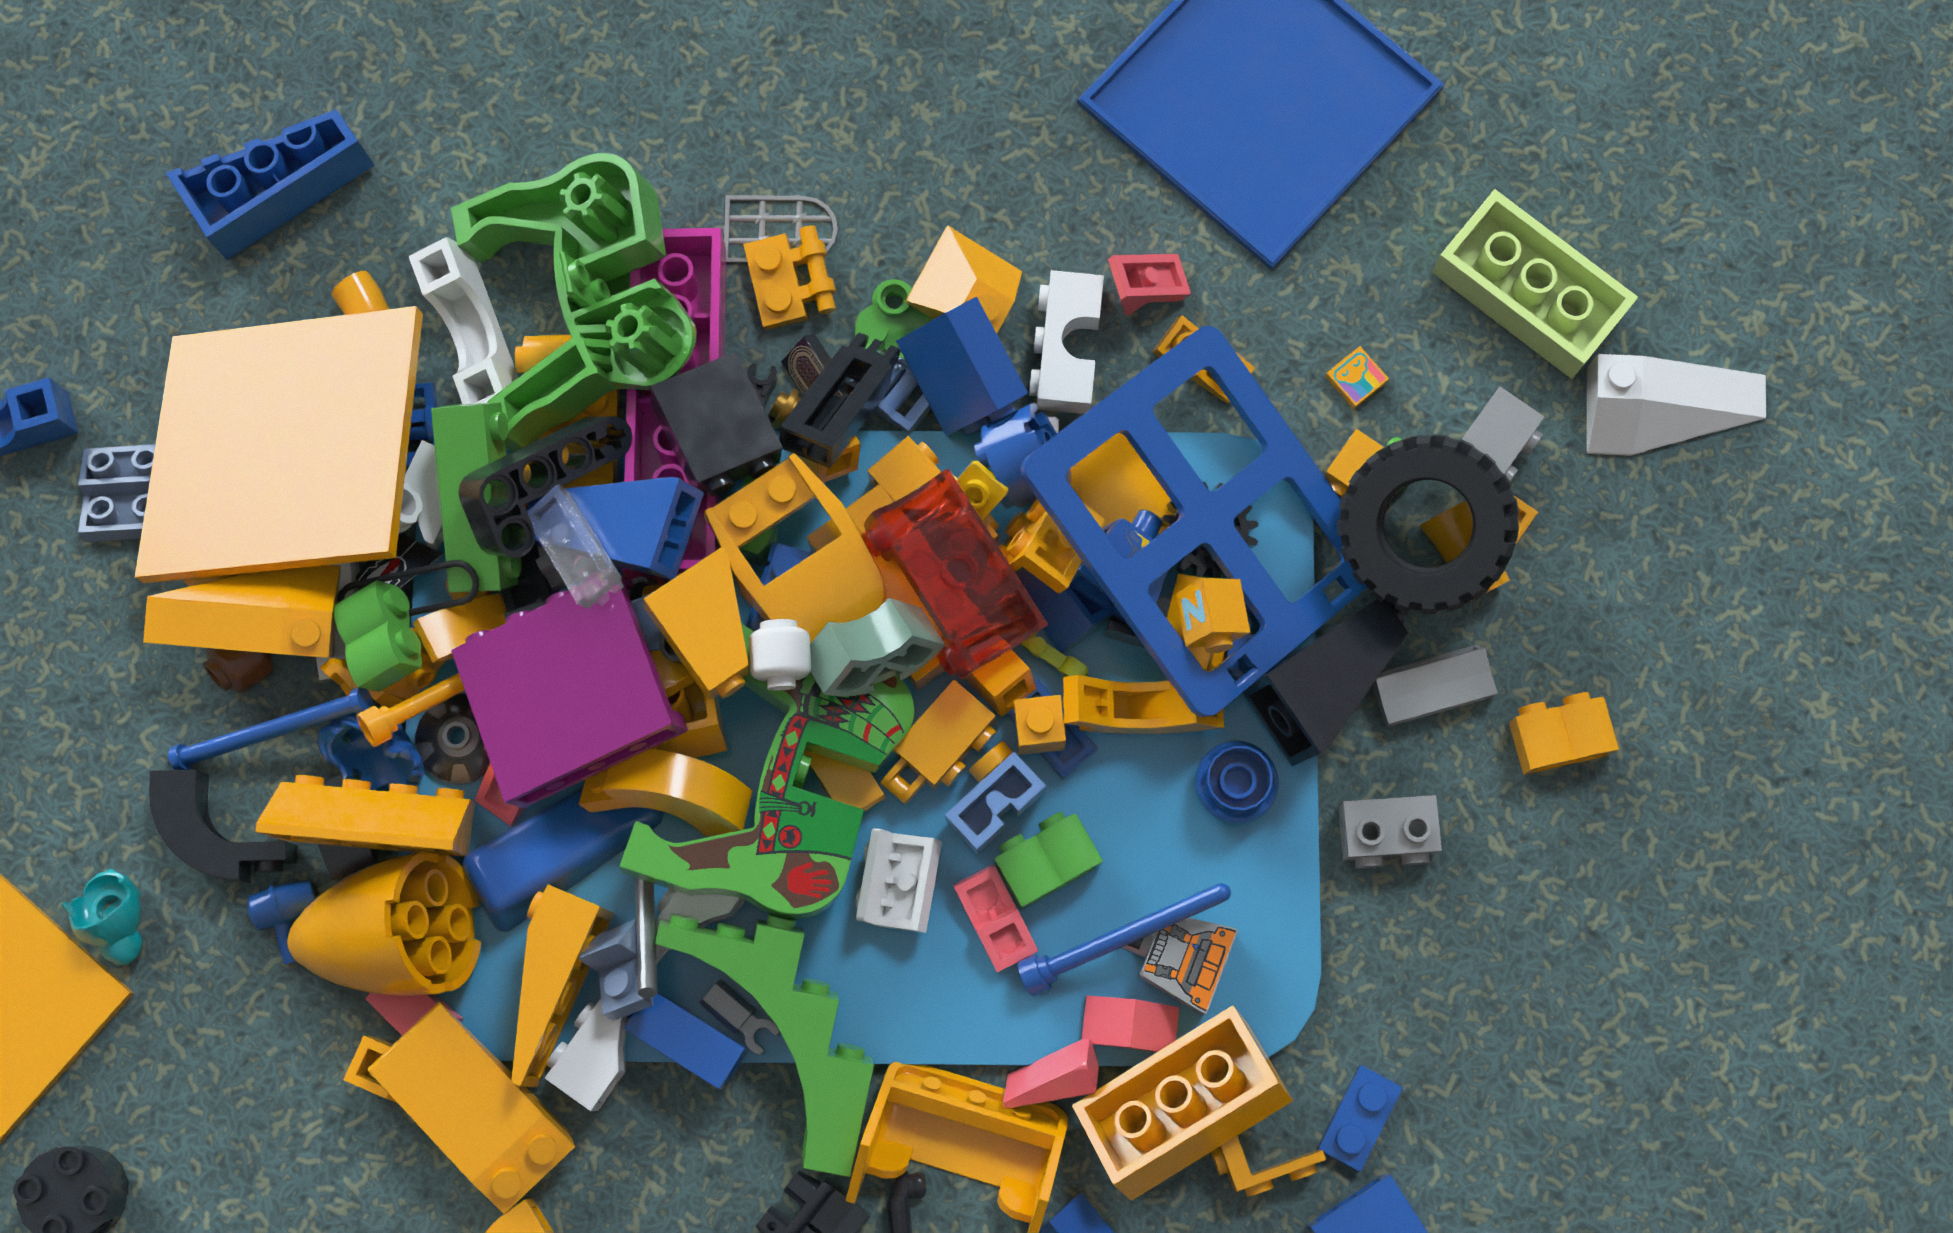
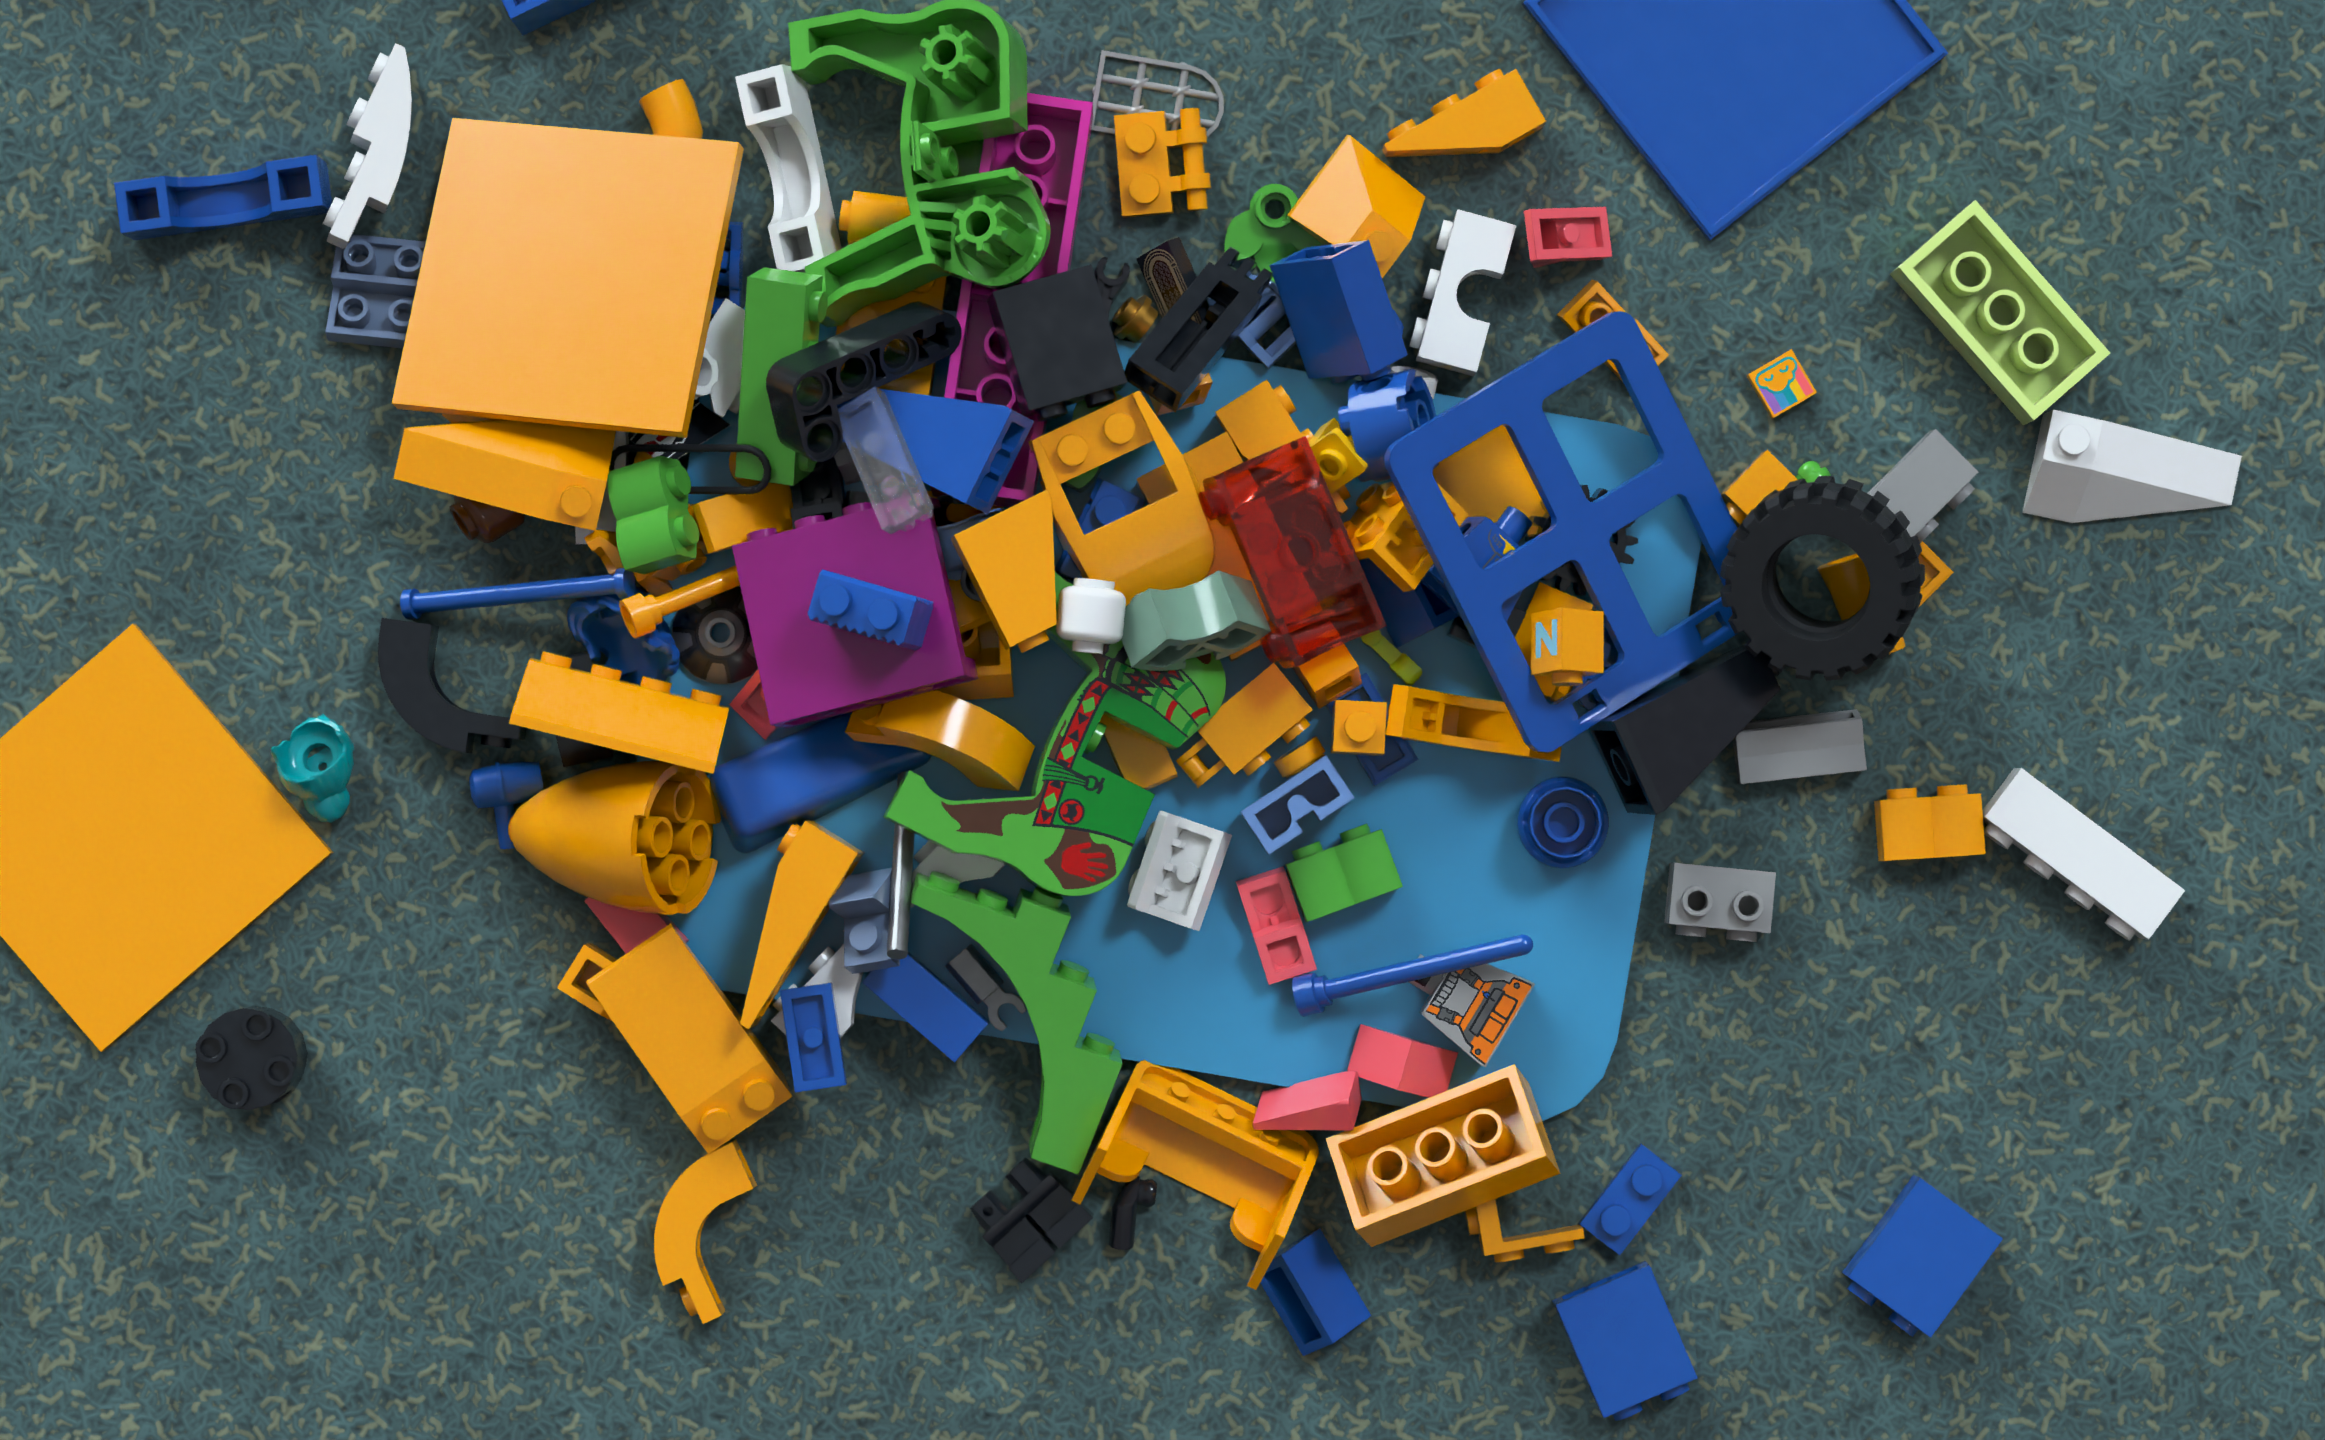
camera: 15 degrees right, 10 degrees up
(111, 356) = (383, 131): none -> white slope
(577, 678) = (870, 610): none -> blue brick
(583, 1085) = (813, 1037): none -> blue plate
(1057, 201) = (1479, 124): none -> light orange slope
(1636, 1128) = (1920, 1258): none -> blue brick
(1703, 738) = (2080, 854): none -> white brick

